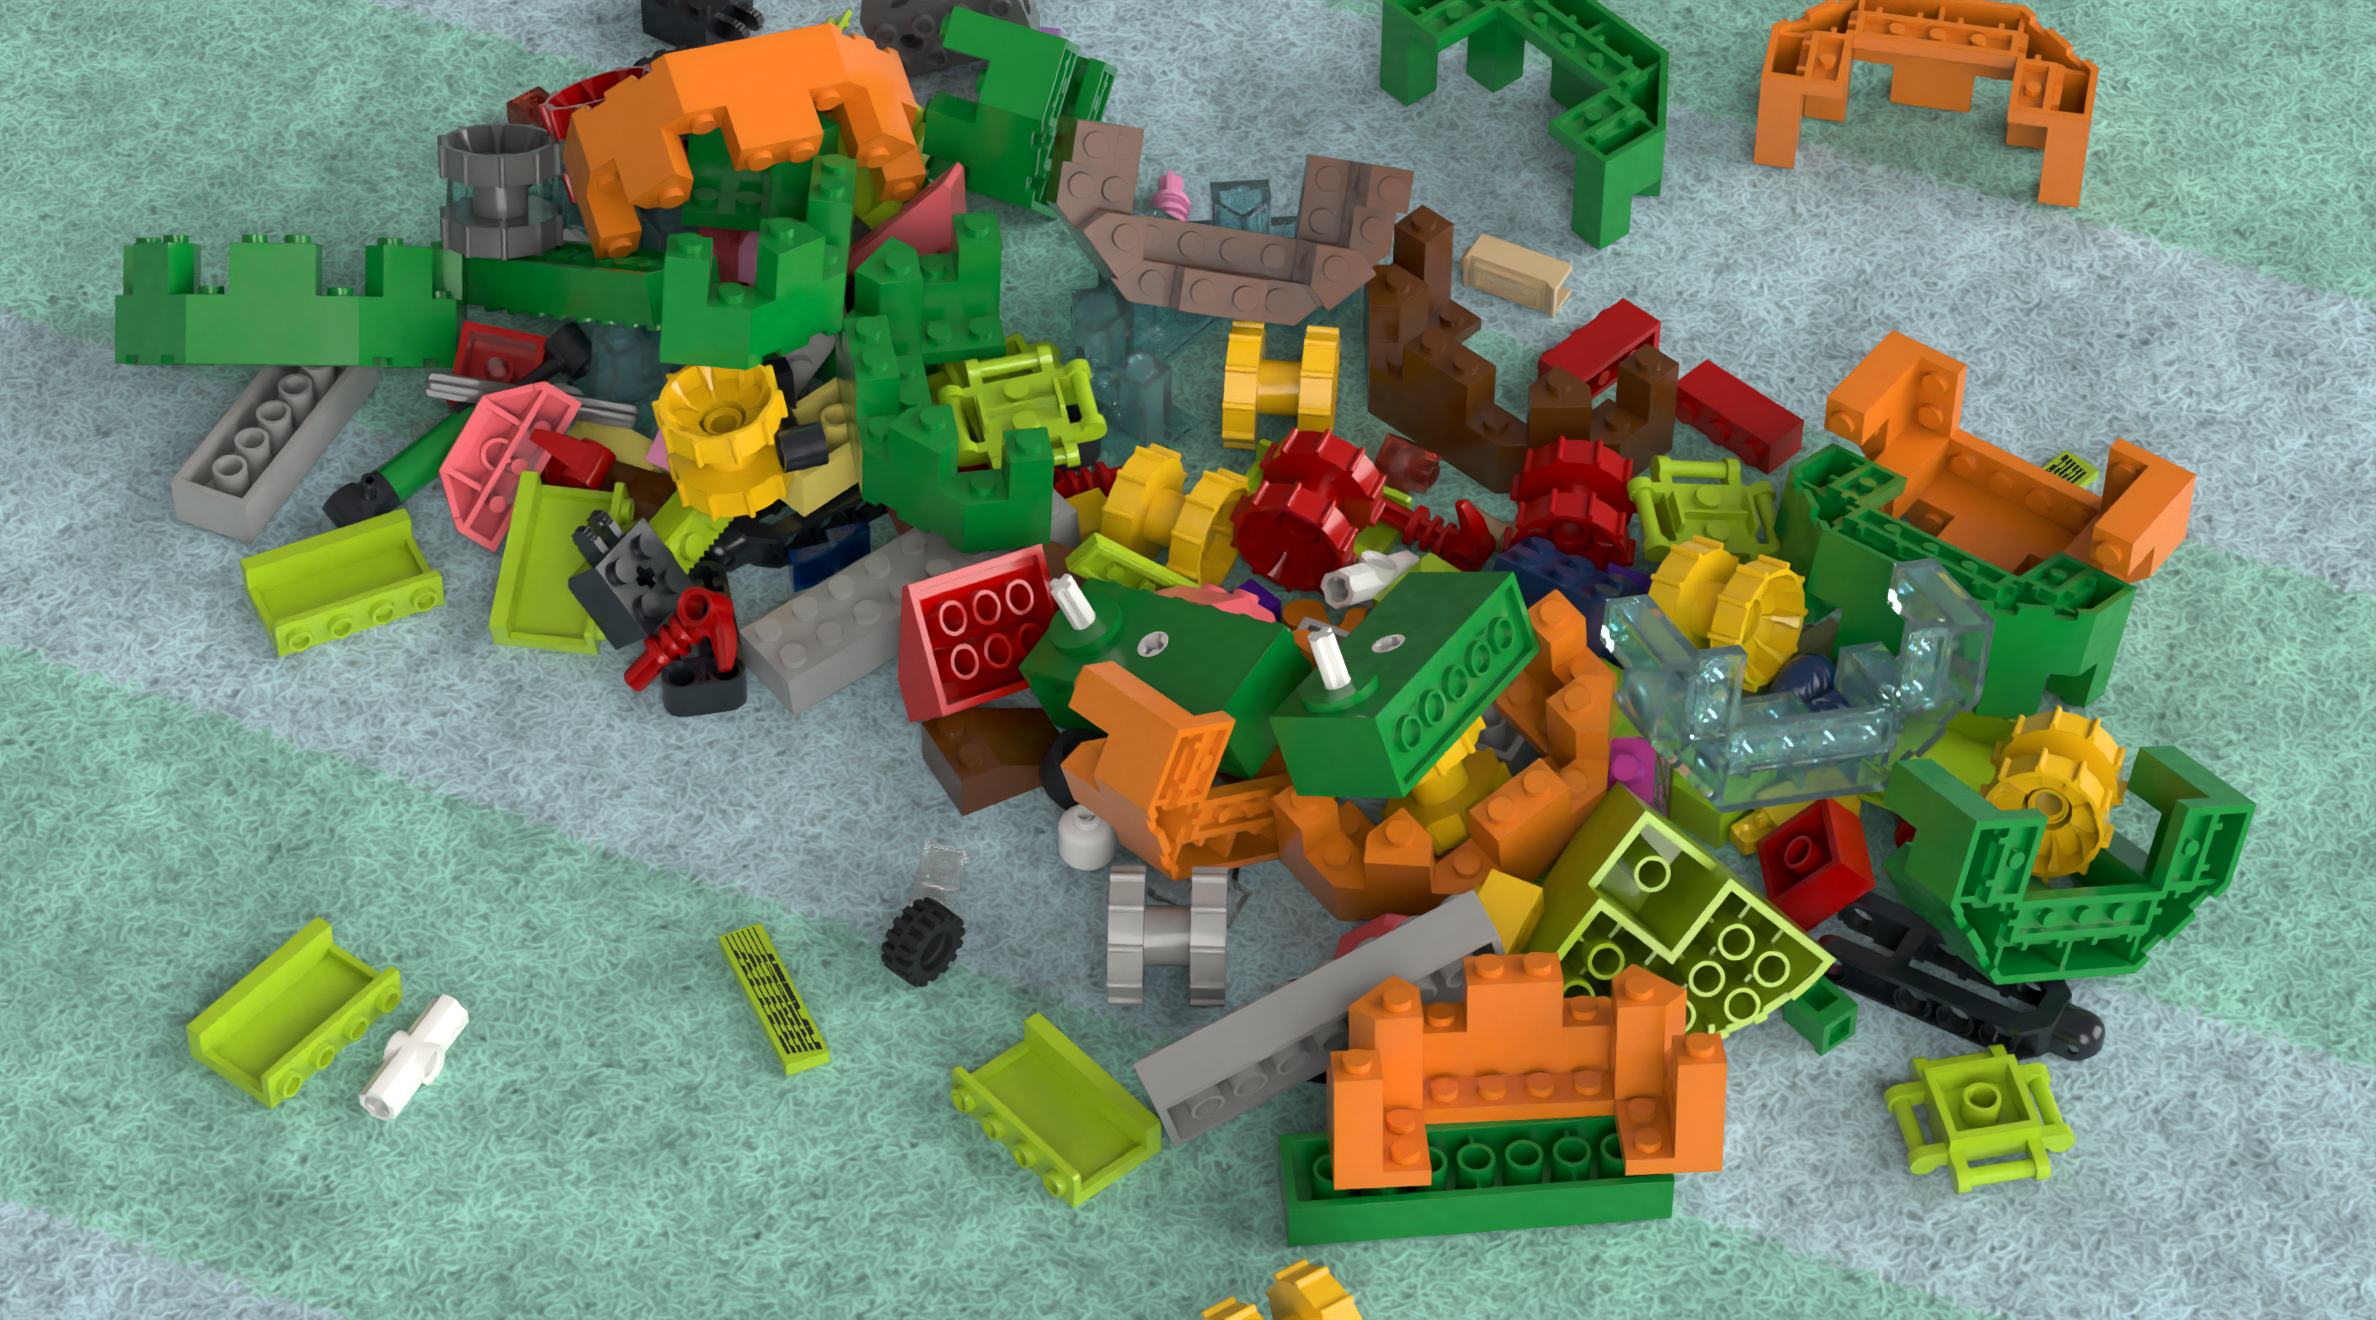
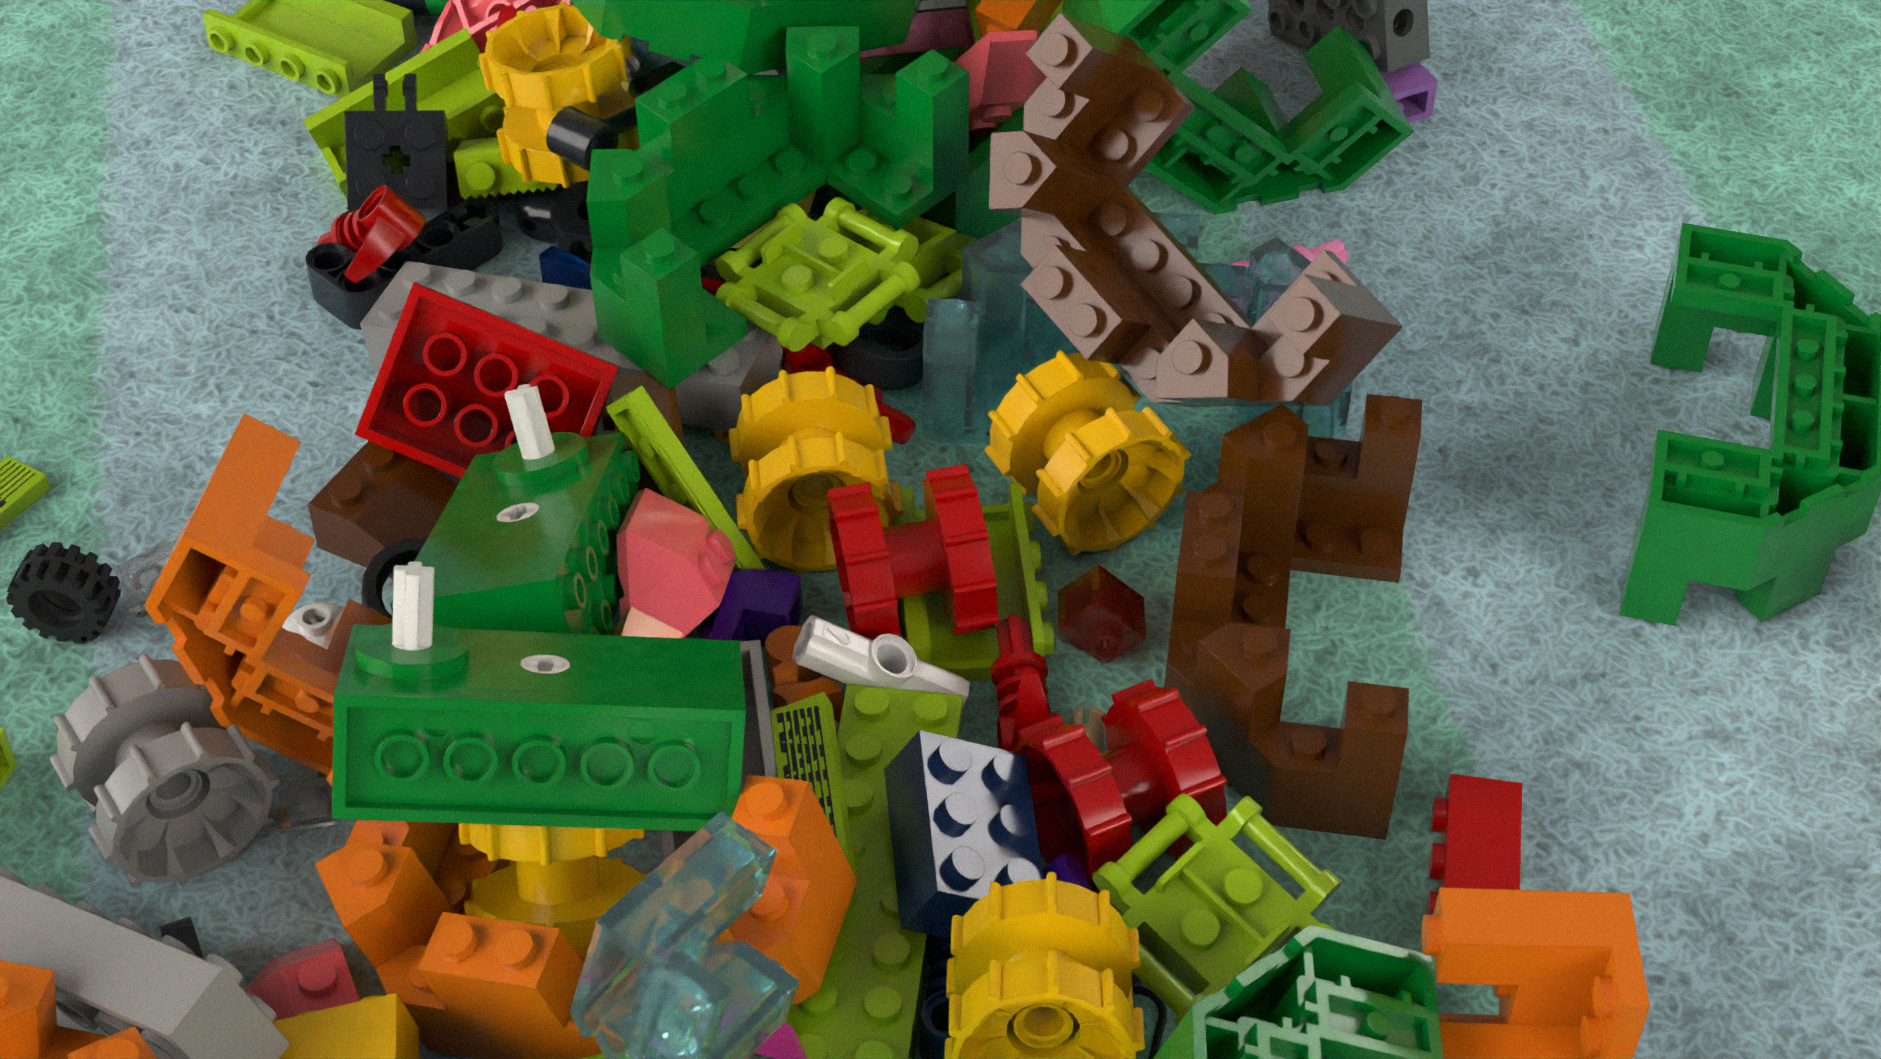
camera: 55 degrees right, 0 degrees up
(1516, 274) = (1493, 563): tan window -> none
(1602, 344) = (1458, 689): red brick -> none

